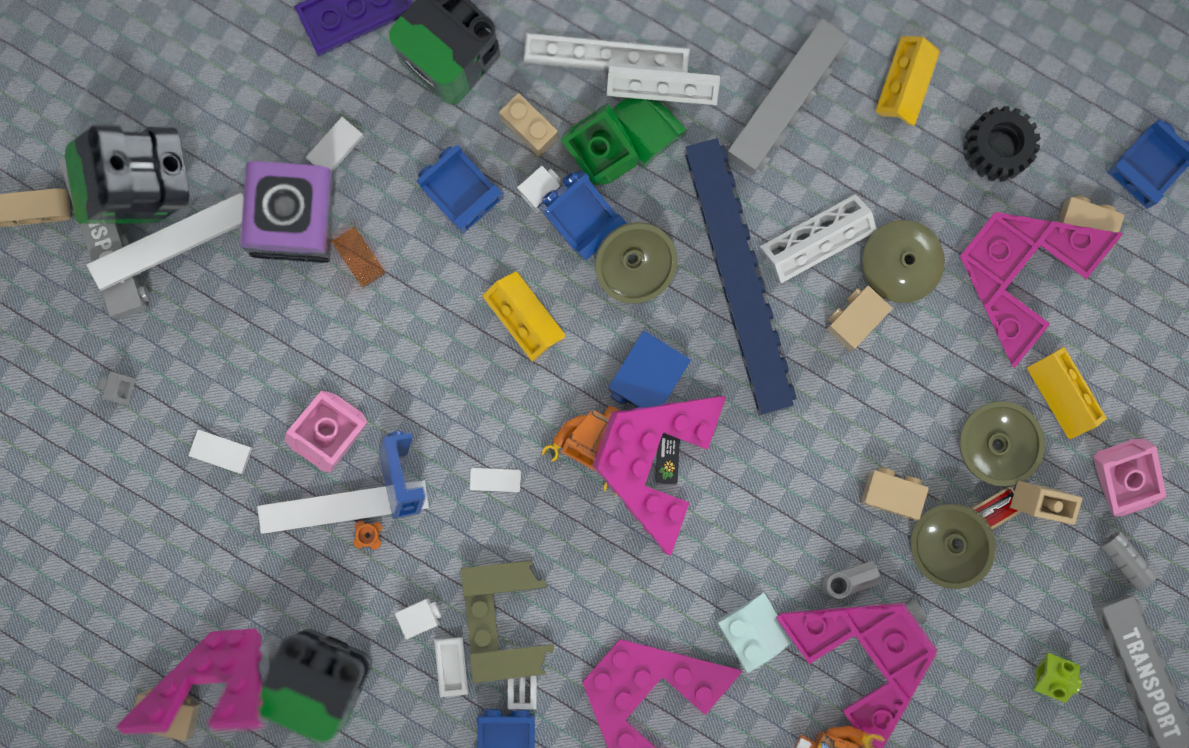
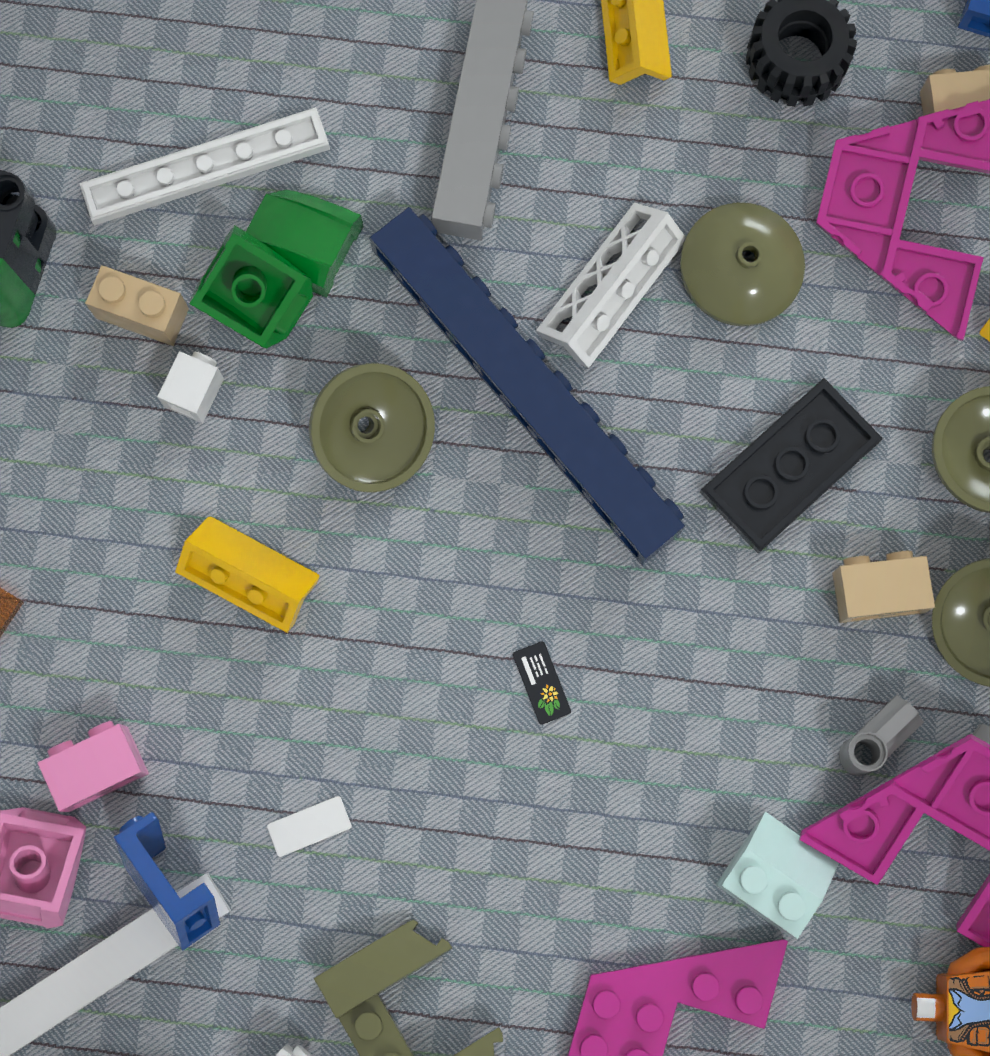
camera: 20 degrees left, 5 degrees down
(360, 538) = (145, 988): orange plate -> none
(385, 389) = (92, 767): none -> bright pink brick
(459, 188) = (76, 436): blue panel -> none
(580, 214) = (262, 395): blue panel -> none
(581, 438) = (429, 707): orange torso -> none
(629, 452) = (483, 700): dark pink wing -> none
(648, 373) = (461, 578): blue panel -> none
(663, 85) = (300, 168): white fence -> none
(858, 318) = (718, 367): tan brick -> none
(875, 396) = (791, 465): none -> black tile

